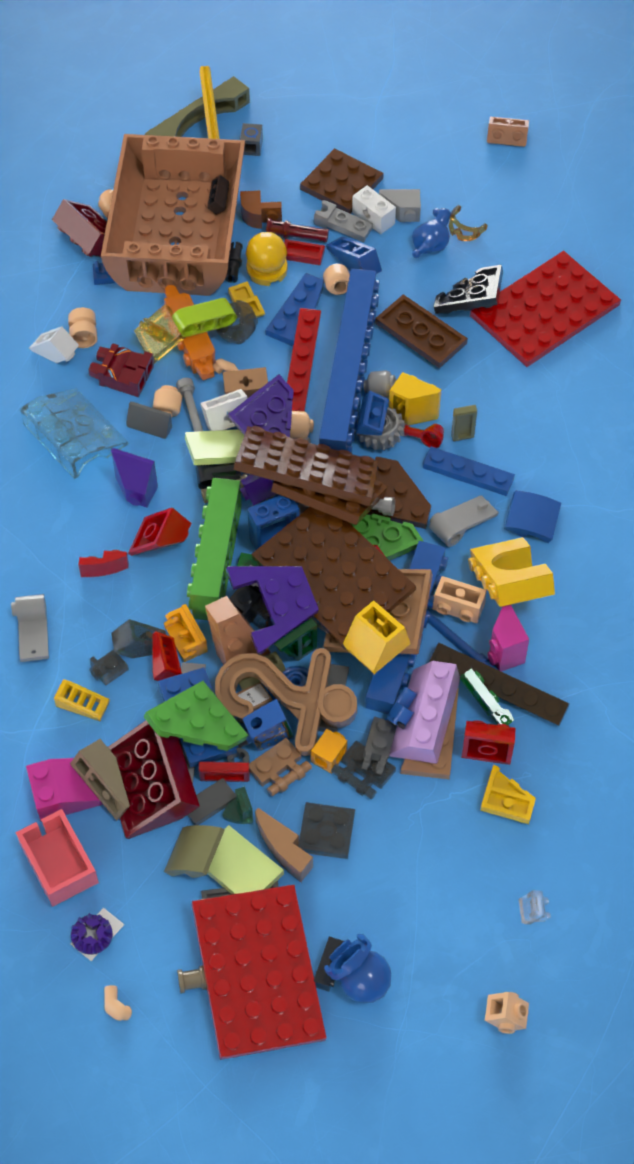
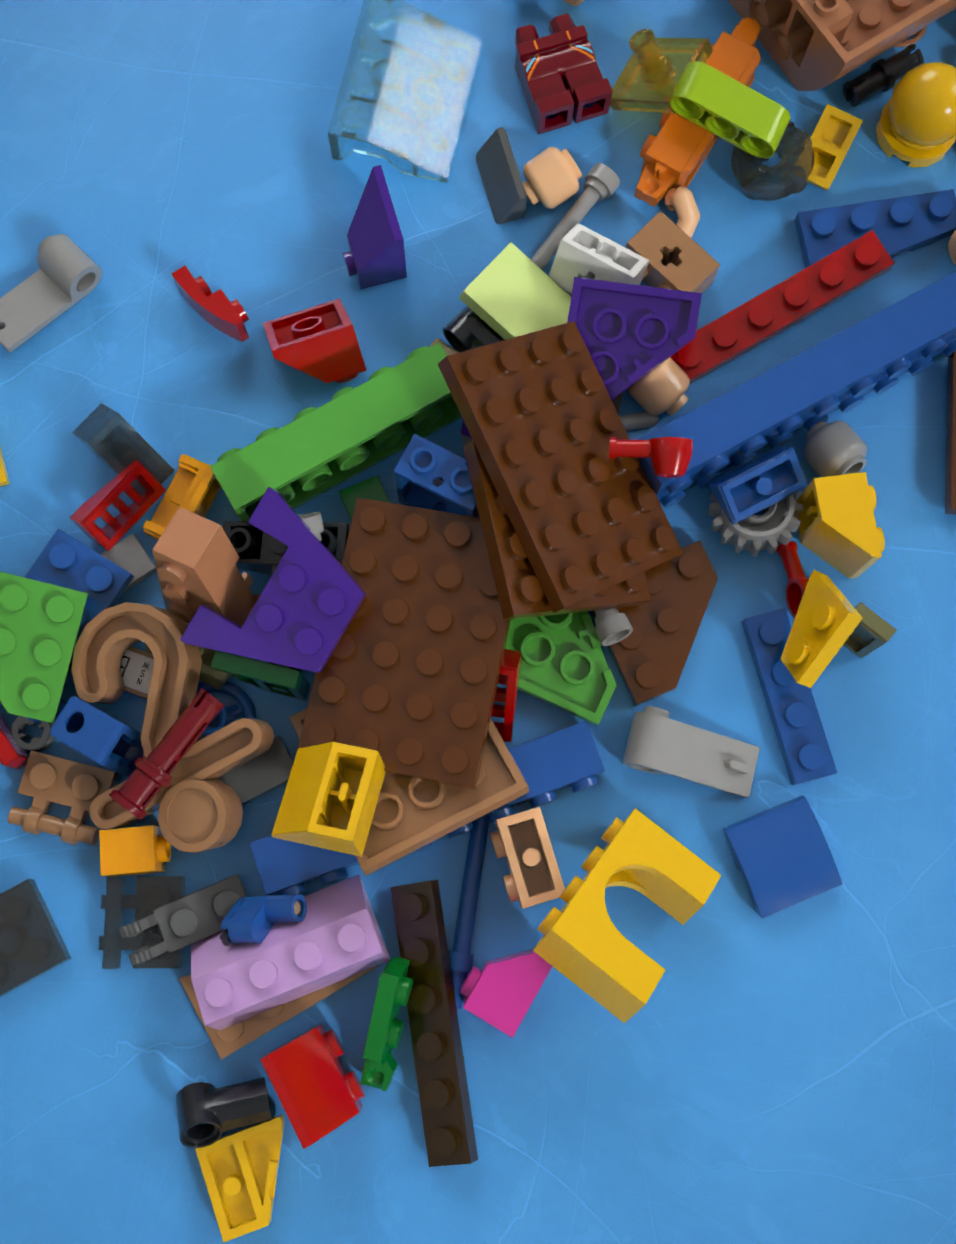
camera: 50 degrees right, 20 degrees up
(108, 667) = (50, 440): clear smoke bracket -> none
(306, 699) = (155, 770): none -> dark red pin
(337, 428) = (667, 454): none -> red bar
(451, 433) = (818, 630): none -> yellow wing
(471, 789) = (209, 1111): none -> black piece

